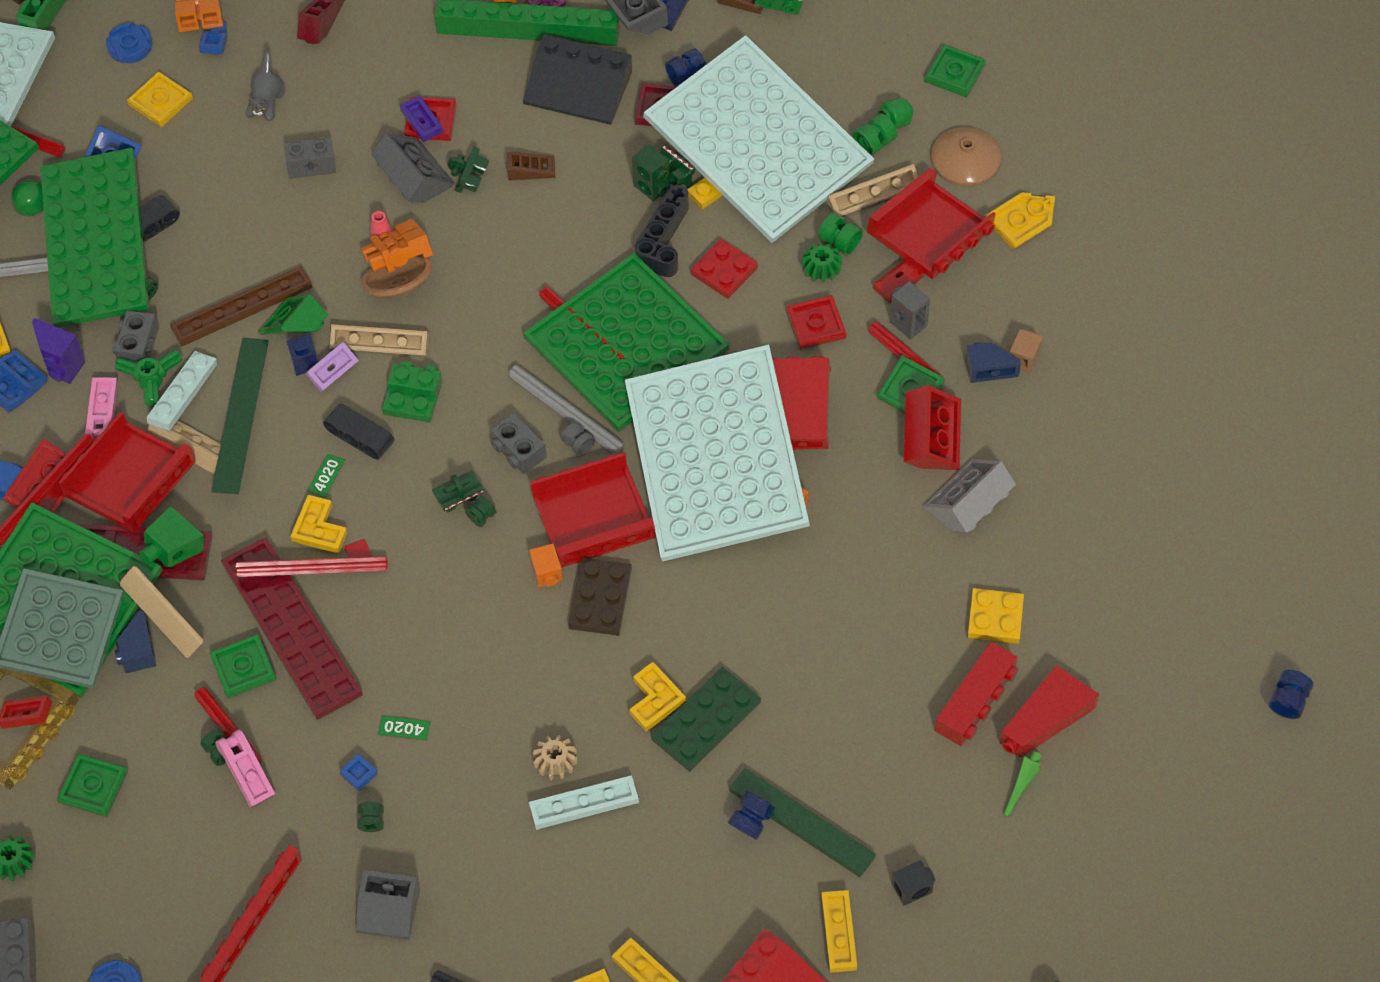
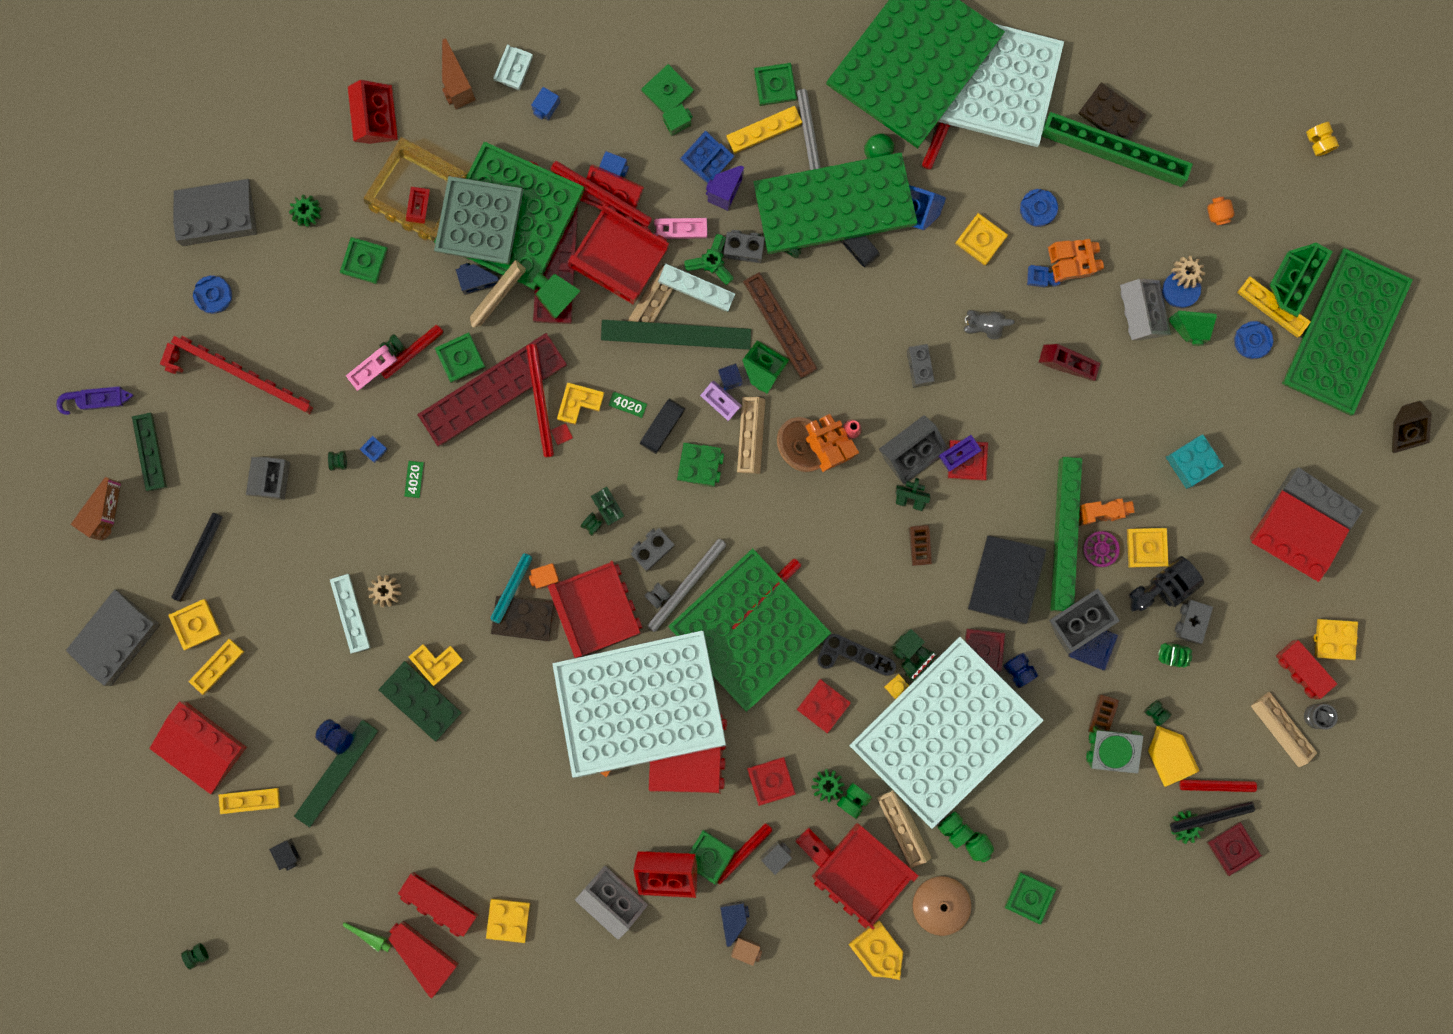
camera: 80 degrees right, 25 degrees up
(559, 601) = (511, 588): none -> teal axle

